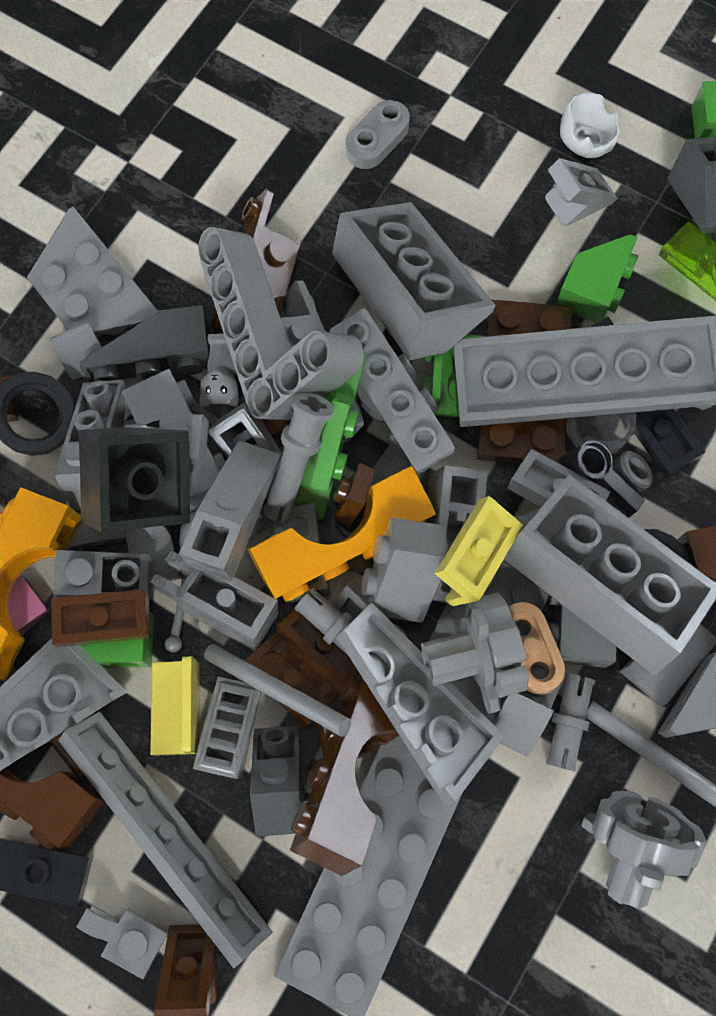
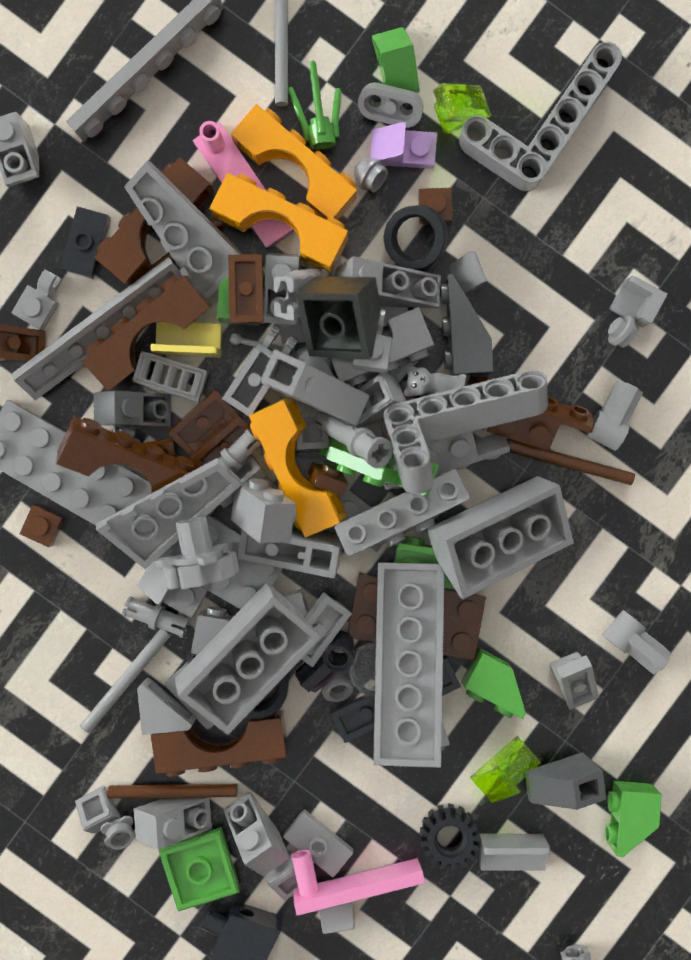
camera: 90 degrees right, 15 degrees up
(86, 281) = (529, 278): light grey wing -> none
(113, 159) = (638, 301): none -> light grey panel
(116, 546) = (292, 283): none -> light grey animal
(149, 173) = (622, 331): none -> light grey plate
(203, 806) = (115, 358): none -> reddish brown arch
(251, 172) = (612, 421): none -> light grey piece
(278, 690) = (188, 412): light grey bar -> none
(313, 215) = (572, 462): none -> reddish brown bar
(380, 131) = (646, 522): light grey plate -> none
(458, 907) = (42, 525): none -> reddish brown plate
(478, 551) = (264, 564): light yellow panel -> none
(519, 136) = (631, 638): none -> light grey piece
(539, 648) = (205, 598): light nougat plate -> none
(588, 126) = (632, 696): white hair -> none
(643, 846) = (68, 655): light grey piece -> none

